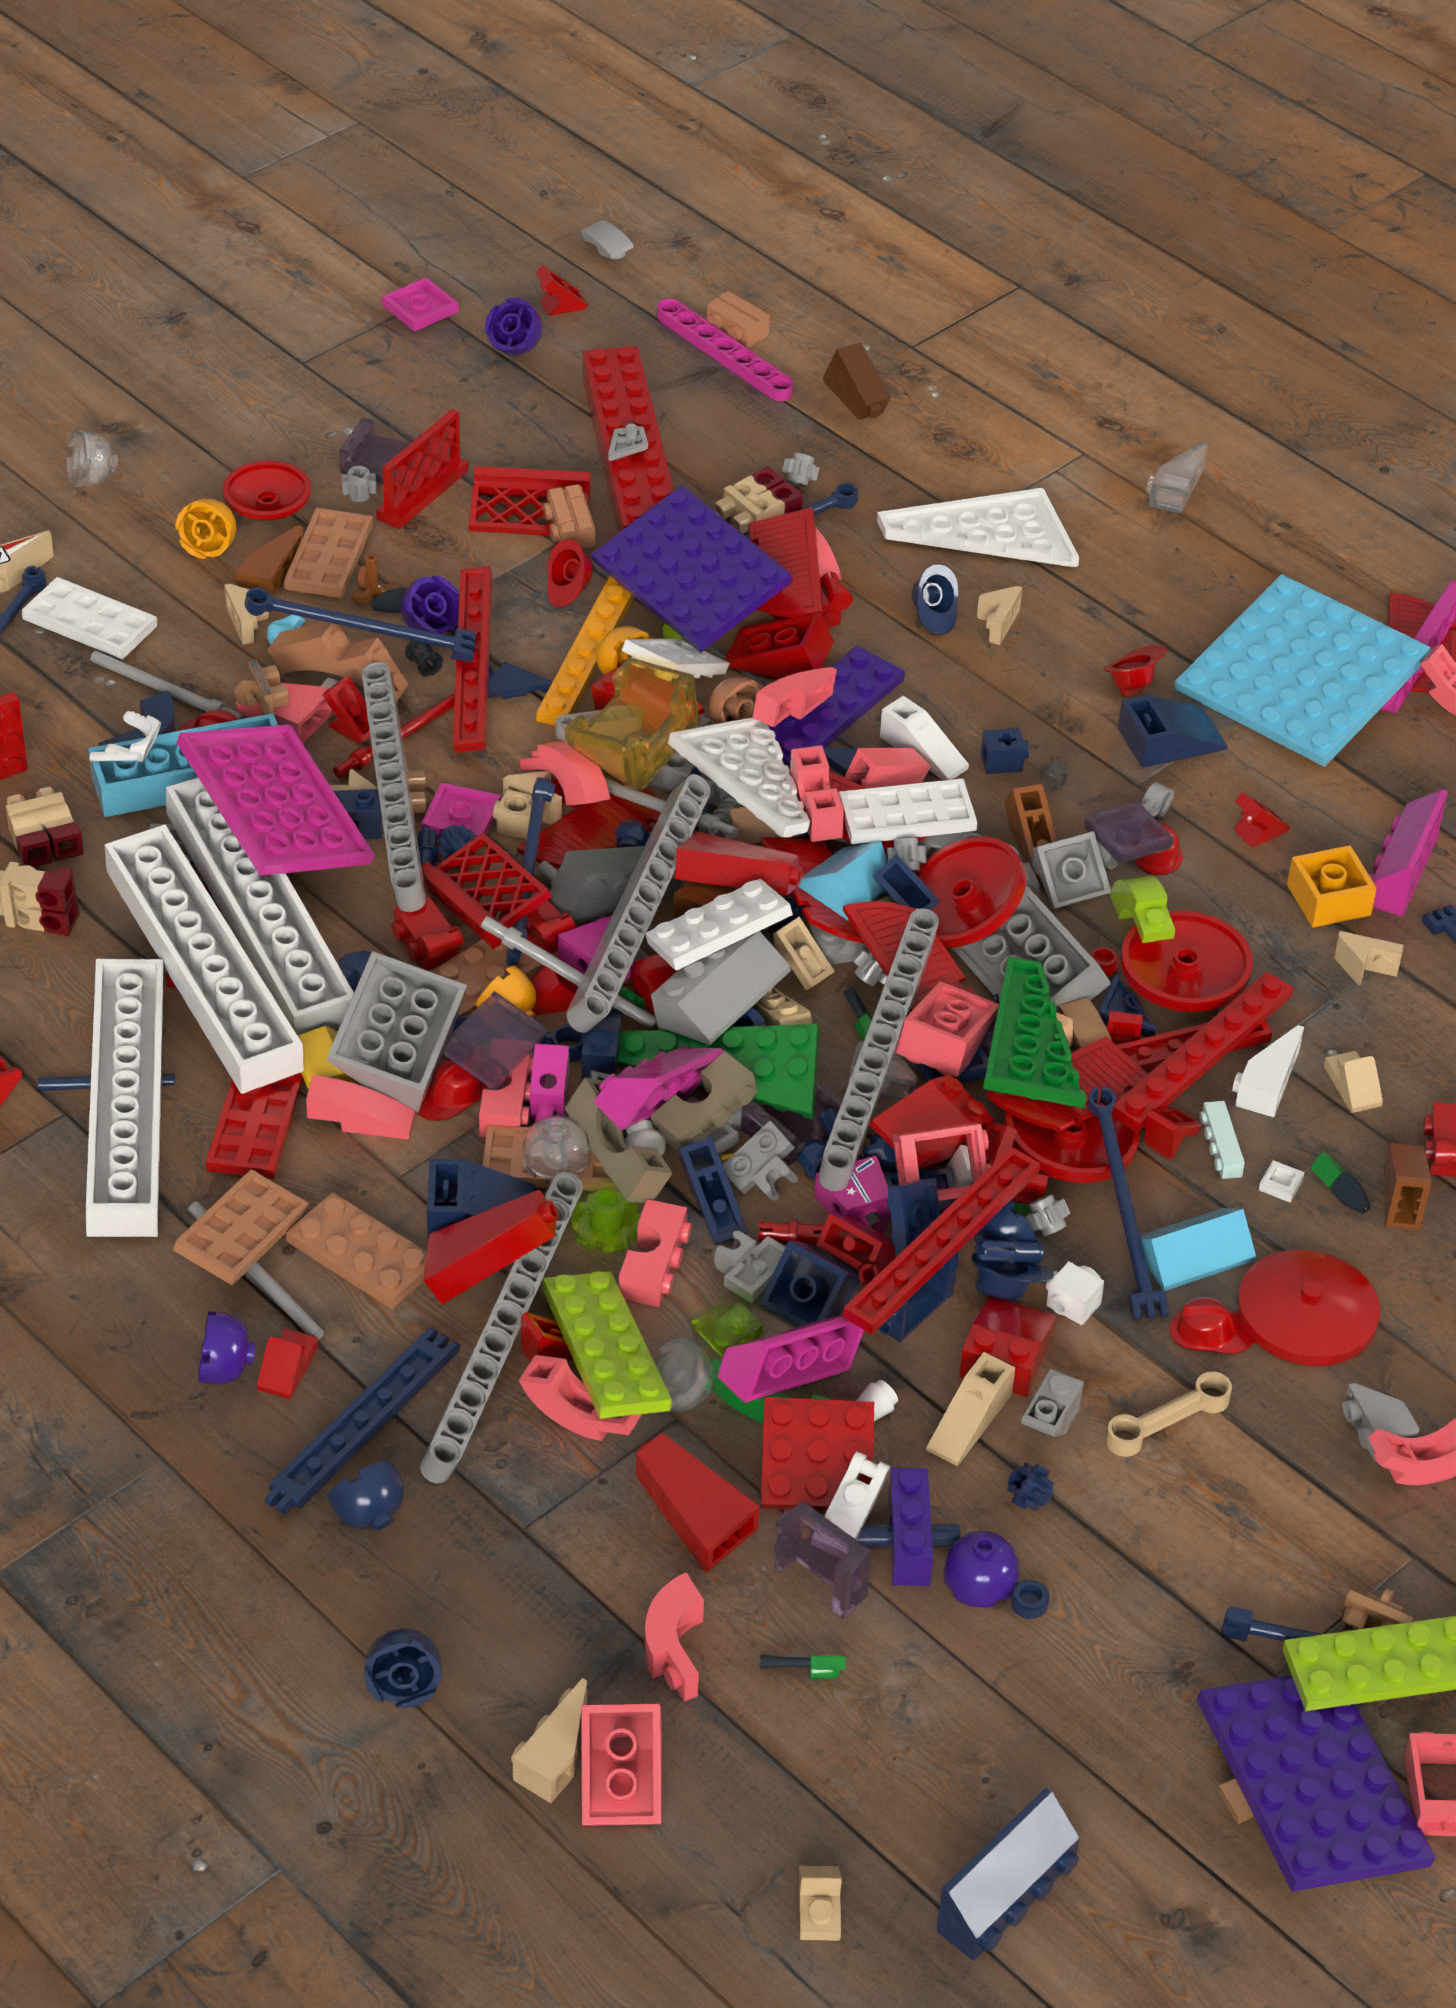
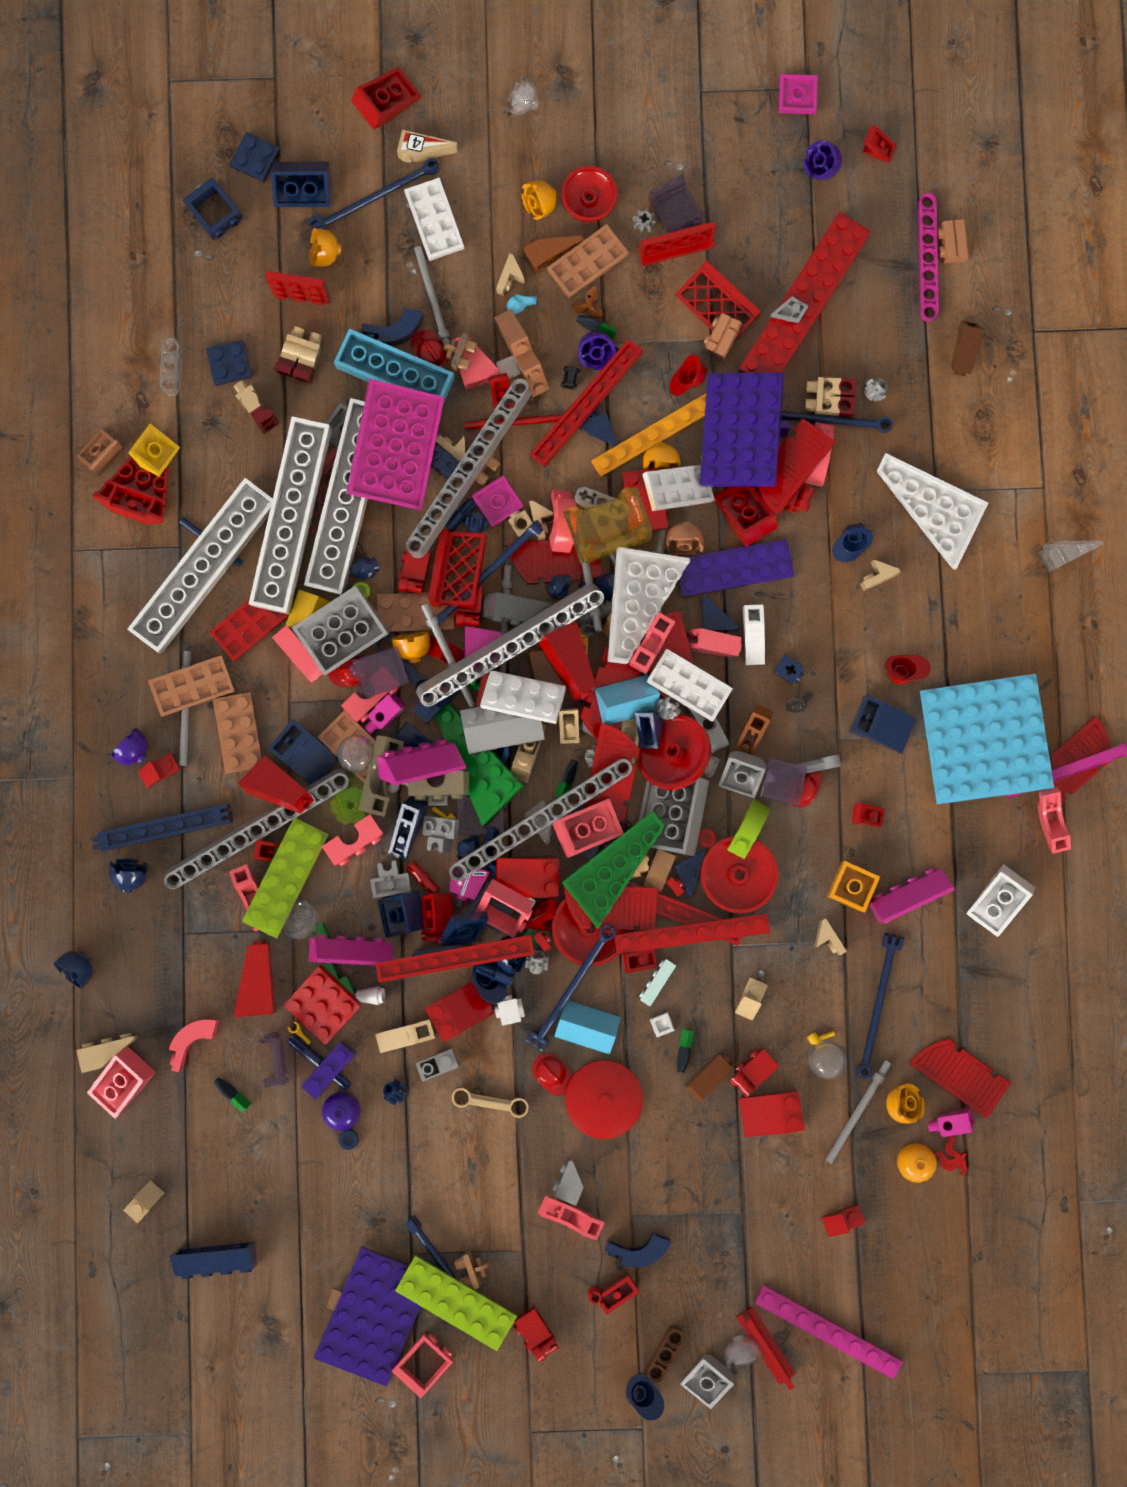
camera: 45 degrees right, 40 degrees up
(138, 751) = (364, 356): white helmet -> none
(462, 644) = (580, 393): dark blue hinge -> none
(608, 239) = (944, 116): light grey slope -> none
(727, 1326) = (348, 906): clear neon green slope -> none
(794, 695) = (710, 561): coral slope -> none
(854, 1498) = (310, 1043): white plate -> none
(1268, 1074) = (711, 967): white slope -> none

